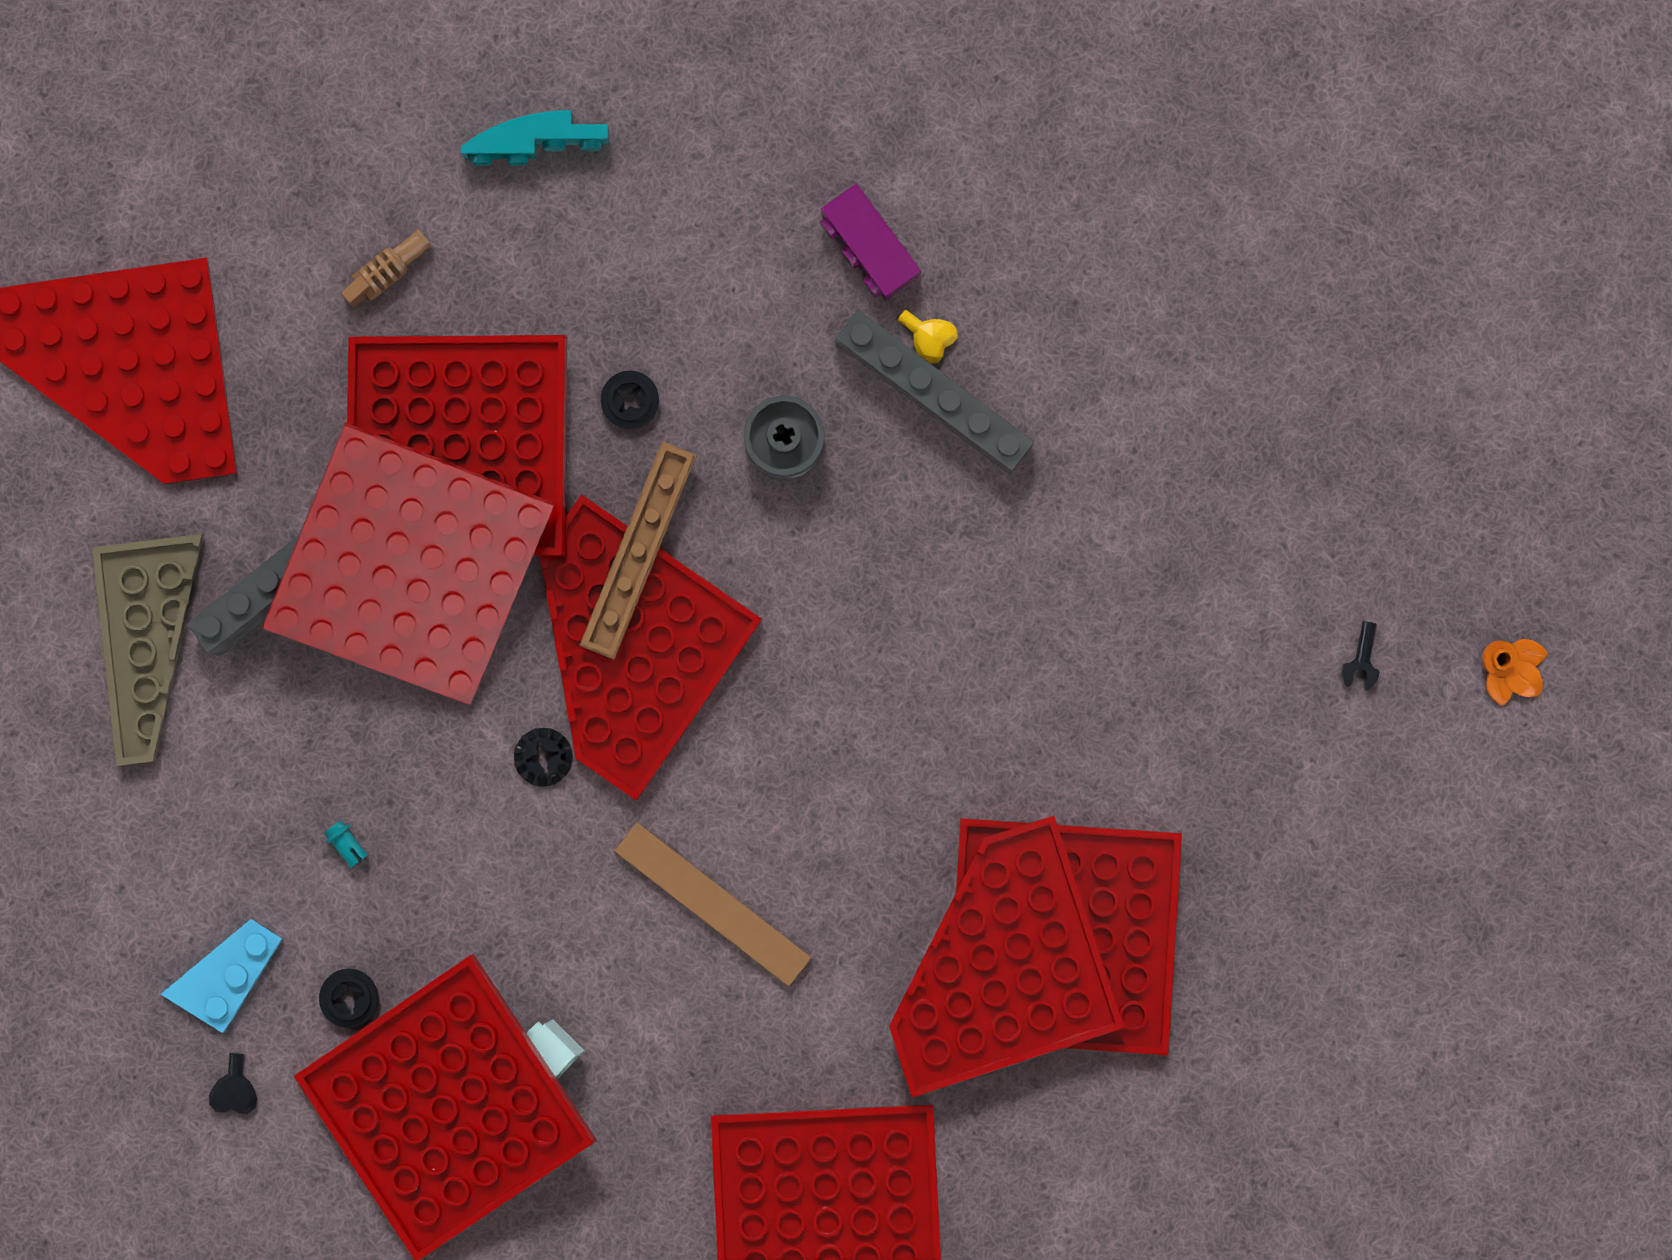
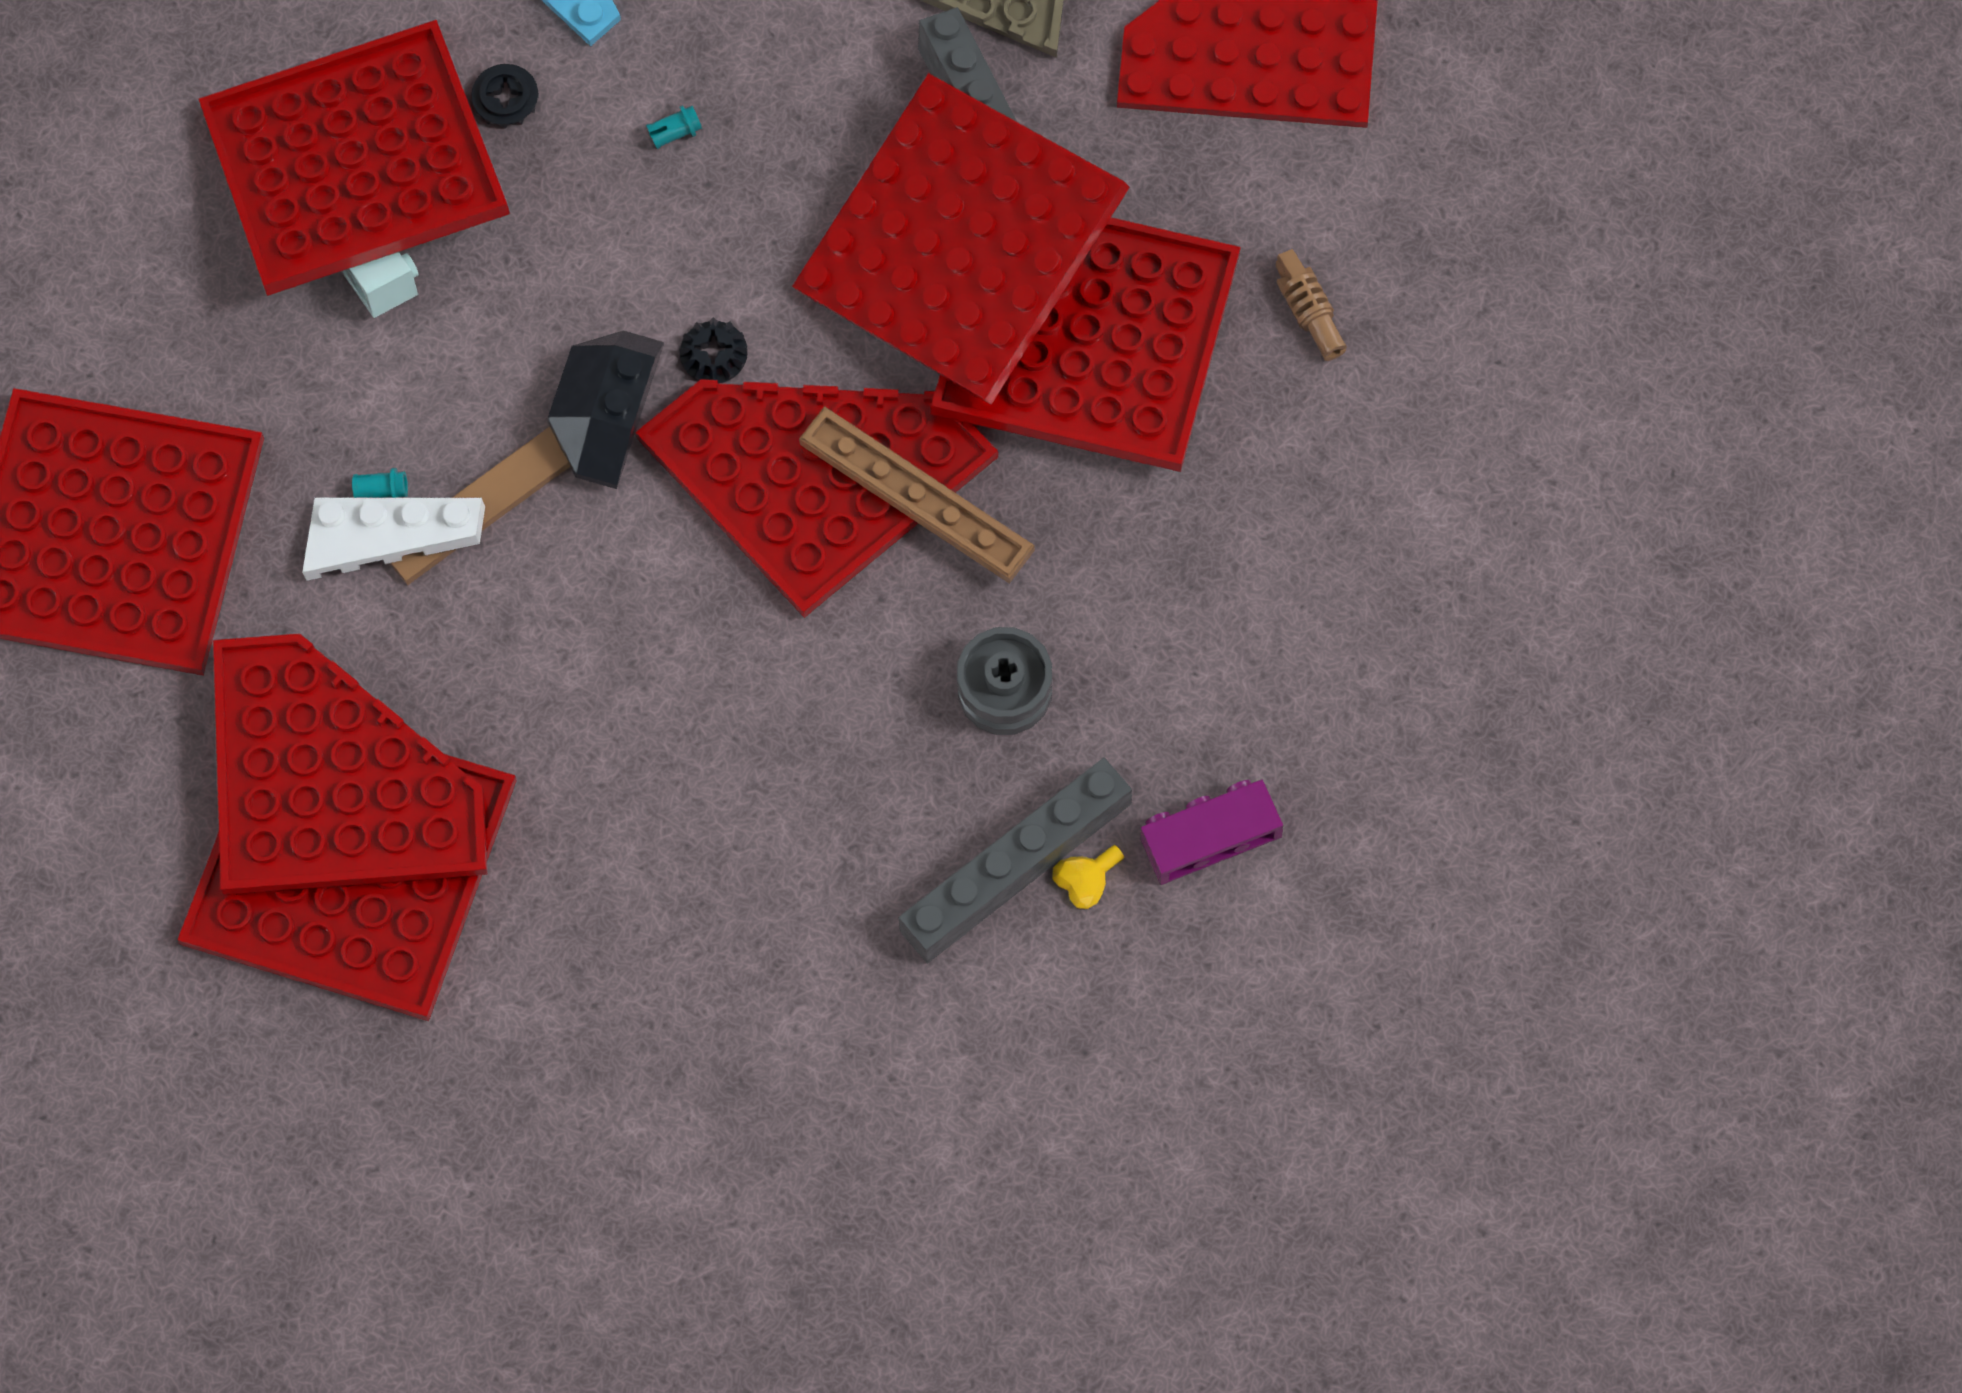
camera: 105 degrees right, 15 degrees down
(519, 138) = (1426, 480): teal slope -> none
(615, 832) = (602, 403): none -> black wedge
(628, 382) = (1096, 512): black gear -> none
(732, 1003) = (380, 485): none -> teal pin
(775, 996) = (386, 529): none -> white wing
(1362, 658) = (572, 1280): black bar -> none

